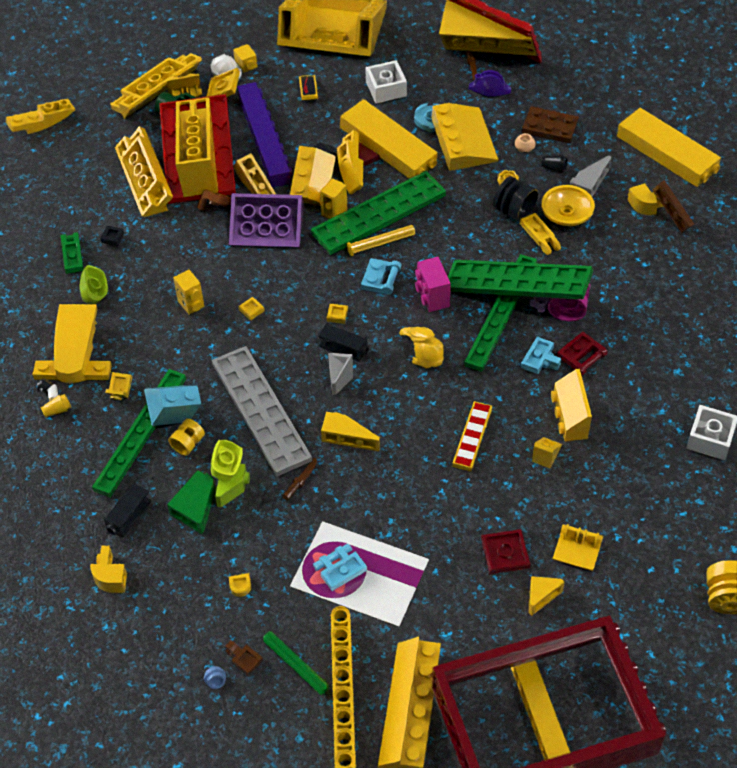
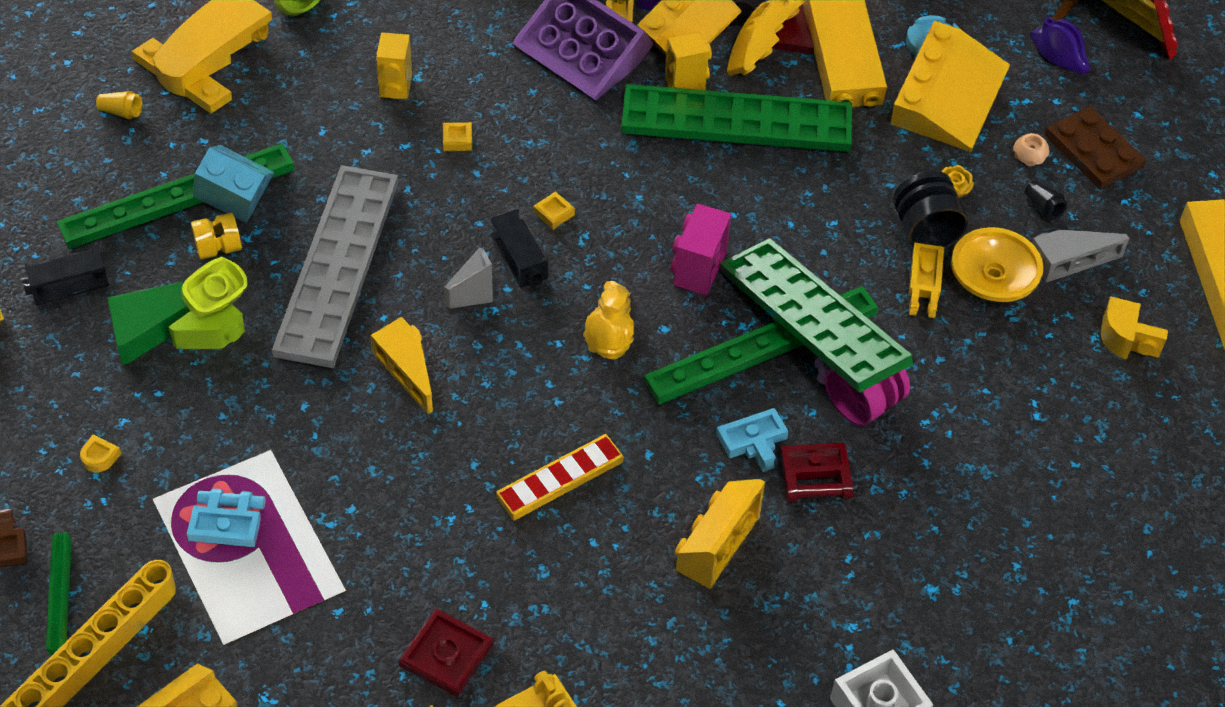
camera: 35 degrees right, 0 degrees up
(45, 384) = (136, 77): arm -> none
(119, 386) = (208, 127): yellow bracket -> none
(299, 482) = (291, 382): reddish brown piece -> none
(375, 274) = (653, 192): medium azure plate -> none
(380, 239) = (704, 153): yellow axle -> none
(545, 452) = (631, 562): yellow slope -> none
(673, 206) = (1147, 360): reddish brown tile -> none

